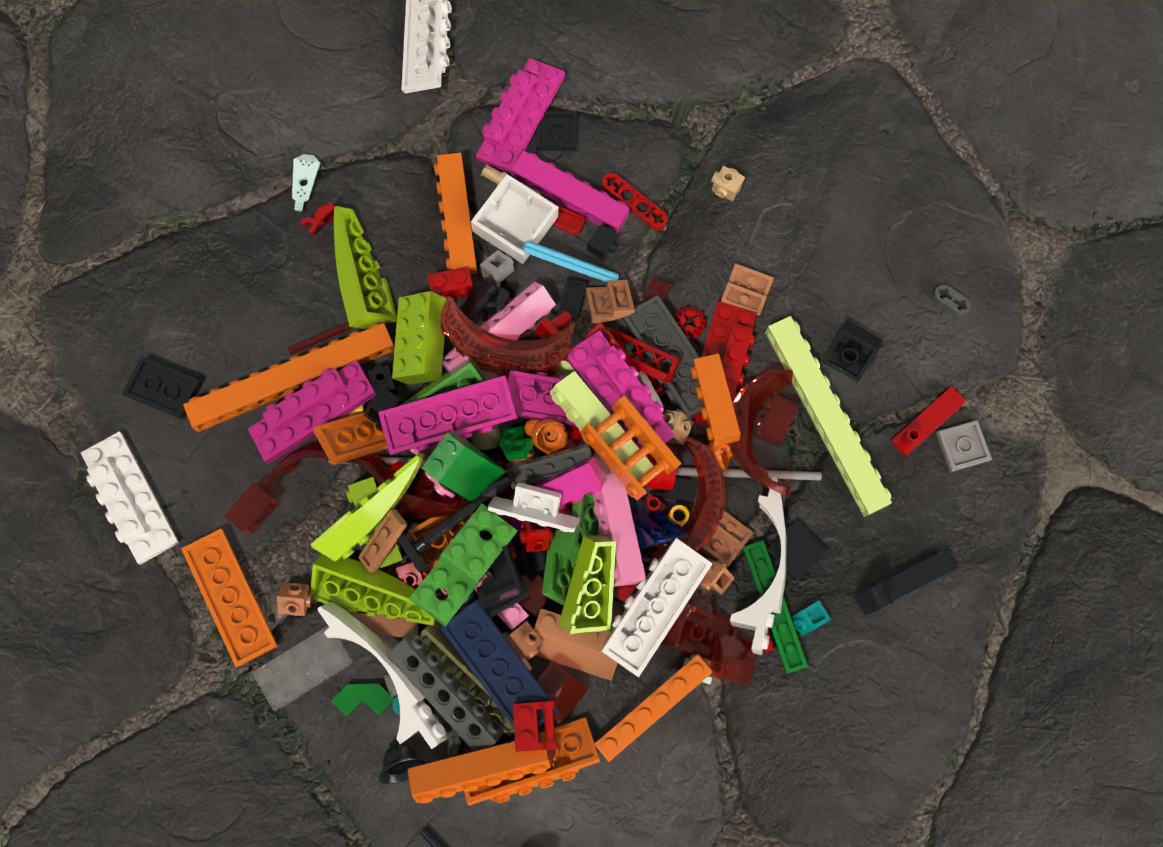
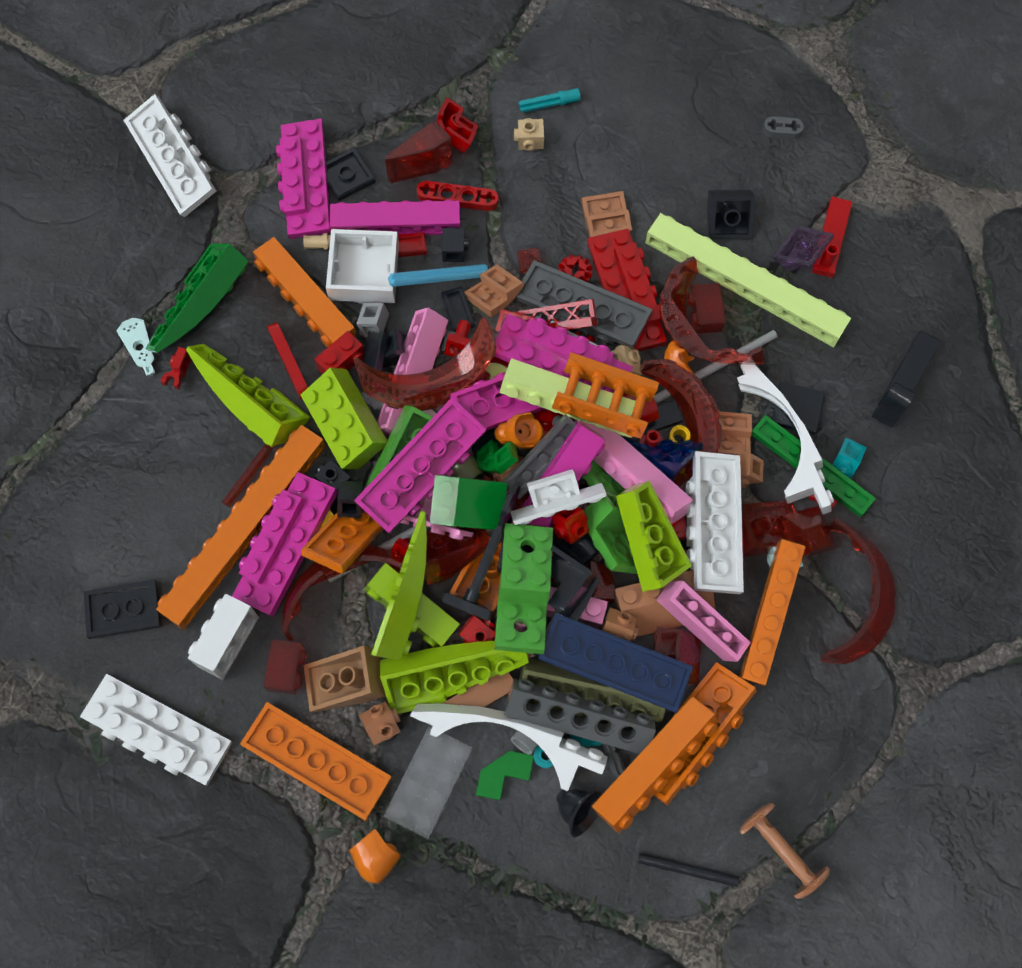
camera: 30 degrees left, 5 degrees down
(218, 457) = (223, 636): none -> white brick
(224, 699) = (374, 857): none -> orange piece
(286, 547) = (344, 680): none -> medium nougat slope
(382, 540) = (433, 613): nougat tile -> none
(387, 161) = (205, 287): none -> green wedge
(410, 260) = (287, 358): none -> red beam
(527, 726) = (676, 696): red plate -> none
(592, 679) = (703, 621): none -> bright pink brick
(624, 150) = (420, 155): none -> clear red slope
(668, 140) = (456, 125): none -> red brick
(715, 399) = (648, 315): orange brick -> none
(755, 754) = (882, 601): none -> clear red windscreen
(763, 161) = (560, 98): none -> teal axle
(891, 417) = (802, 248): none -> clear purple slope
(963, 446) = (874, 240): light grey tile -> none

